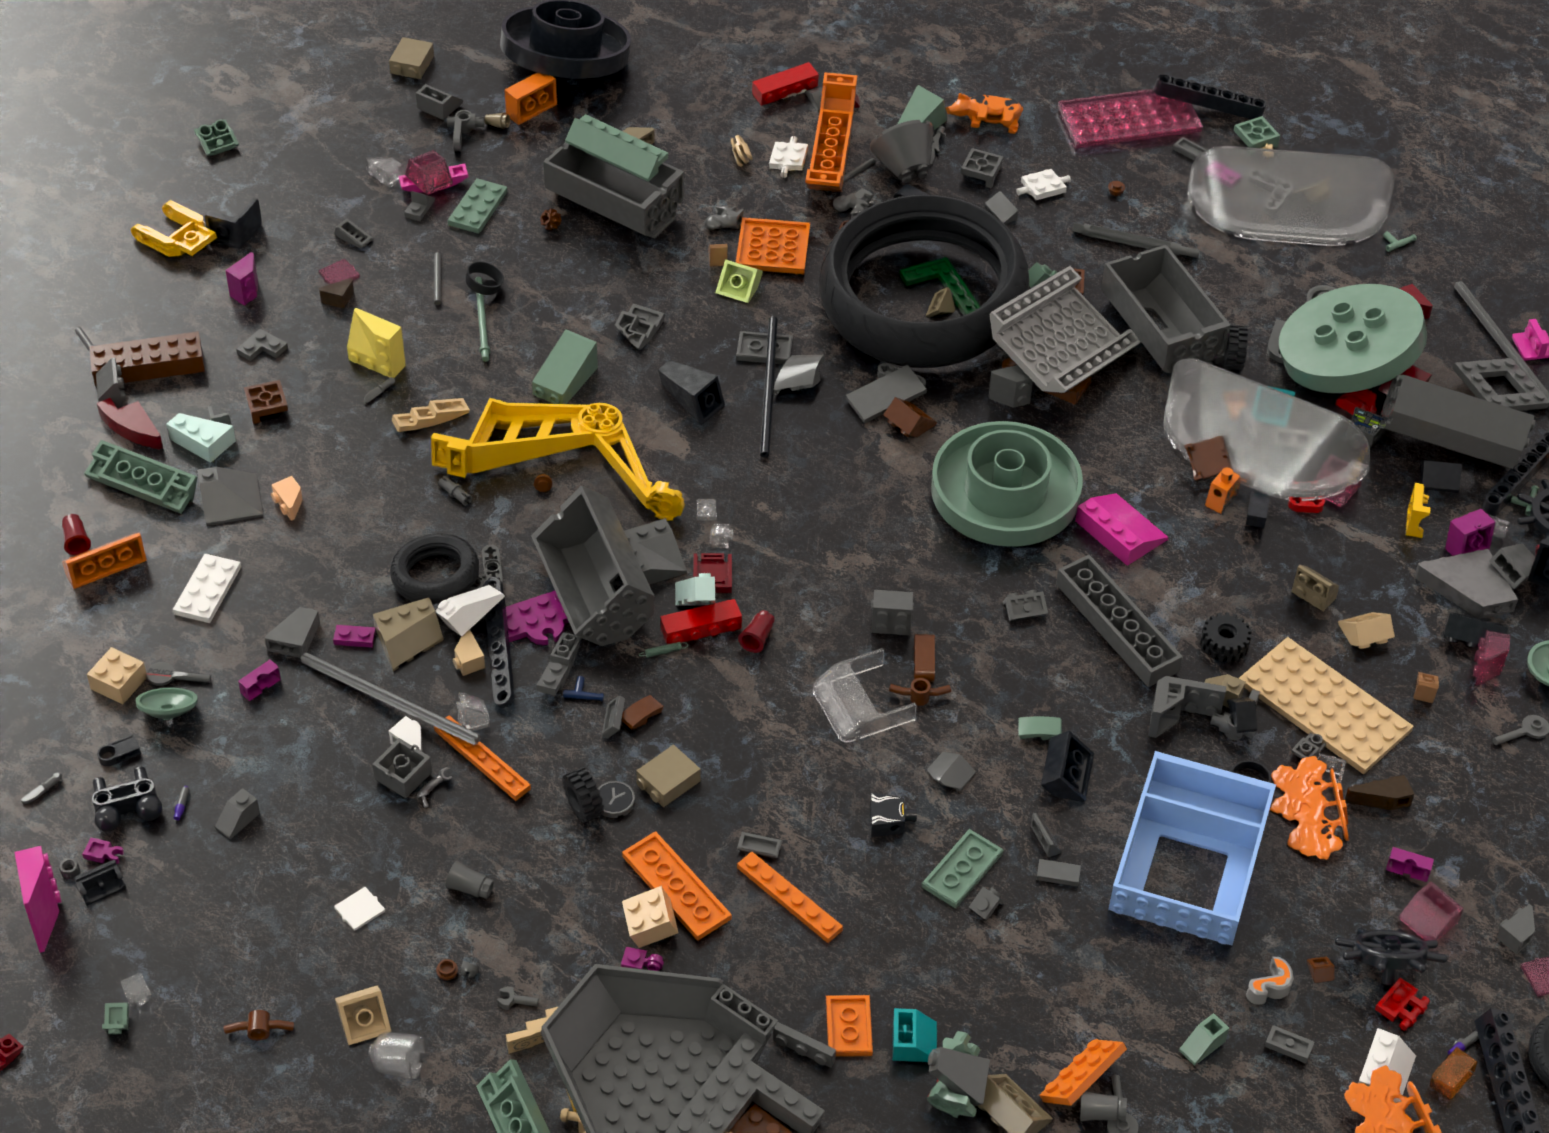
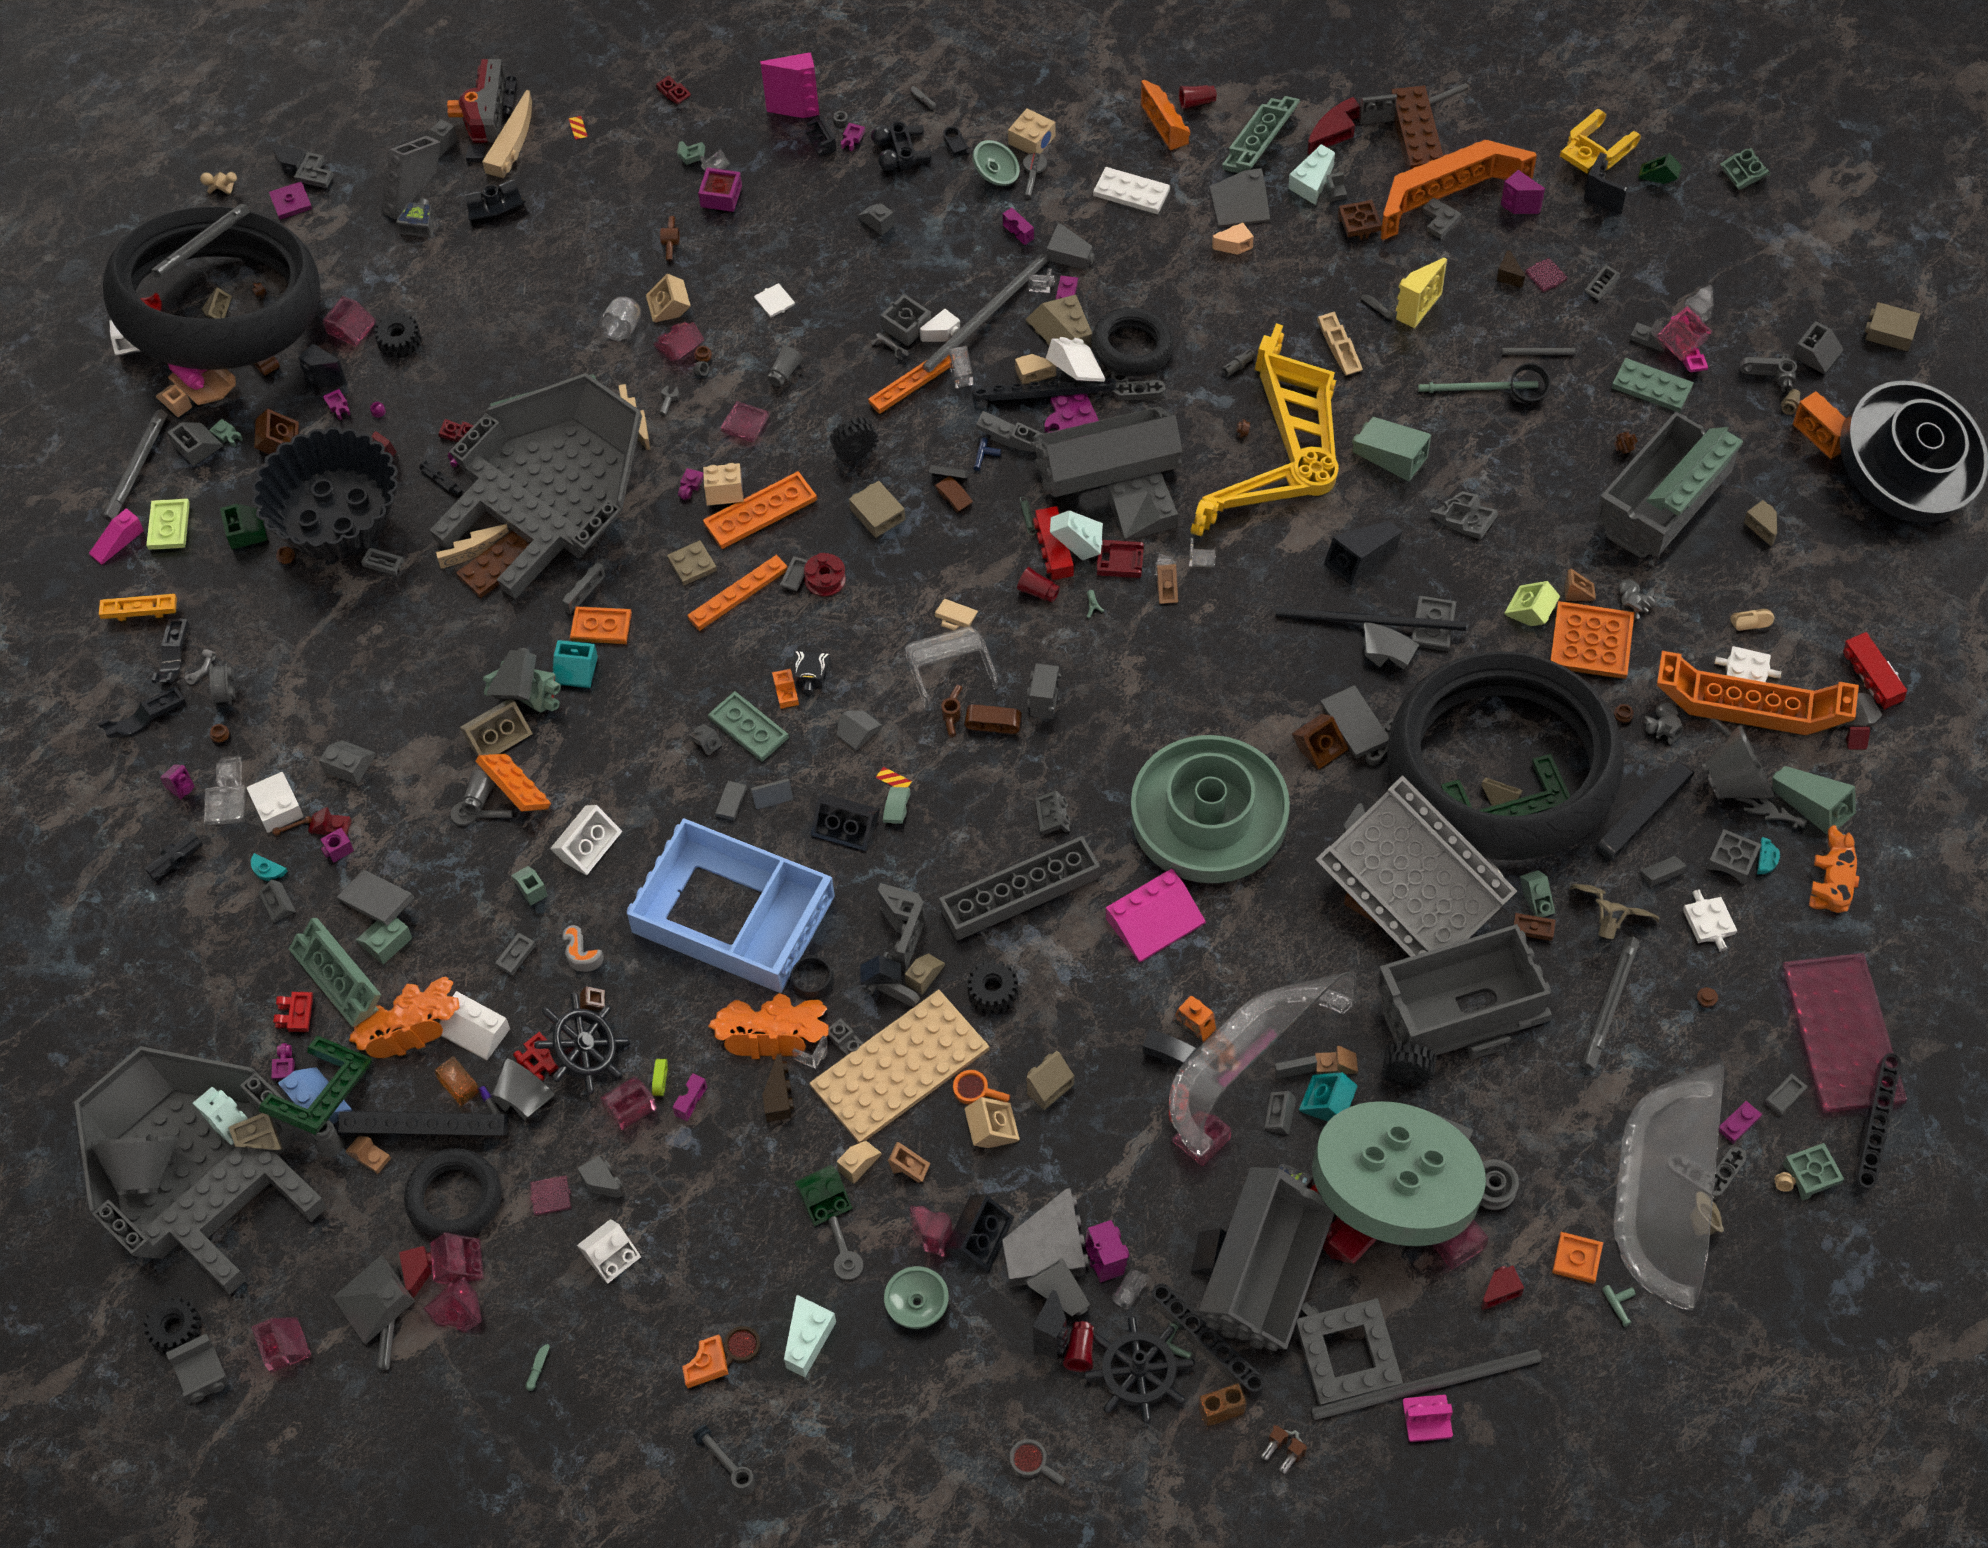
camera: 100 degrees right, 10 degrees up
(179, 805) = (896, 183): piece -> none
(187, 974) = (720, 189): none -> magenta piece
(212, 192) = (1661, 170): none -> dark green slope
(221, 341) = (1450, 175): none -> orange slope
(343, 649) = (1041, 283): none -> clear bracket
(428, 994) = (679, 340): none -> clear pink slope
(549, 914) = (745, 421): none -> clear pink plate
(617, 798) = (860, 472): black tile -> none
(744, 531) = (1167, 583): none -> medium nougat slope
(753, 945) = (692, 562): none -> dark tan plate
(761, 814) = (824, 574): none -> dark red wheel
(771, 590) = (1092, 603): none -> sand green bar
(793, 702) = (955, 614): none -> tan piece
(908, 840) = (785, 688): none -> orange slope
(976, 145) = (1768, 856): none -> teal plate
(1004, 738) = (893, 778): none -> sticker
(1065, 236) = (1609, 924): none -> dark tan plant
(1135, 997) = (586, 839): none -> white slope
(1208, 457) = (1235, 1005): reddish brown piece -> none
(1331, 648) = (972, 1085): none -> piece
(1367, 263) = (1577, 1257): none -> orange tile
(1394, 893) = (659, 1077): none -> lime beam
(1417, 511) = (1147, 1203): yellow piece -> none
(1434, 724) = (857, 1160): none -> tan slope
(1447, 1012) = (520, 1090): none -> dark grey slope
(1476, 746) = (823, 1194): none -> dark green slope

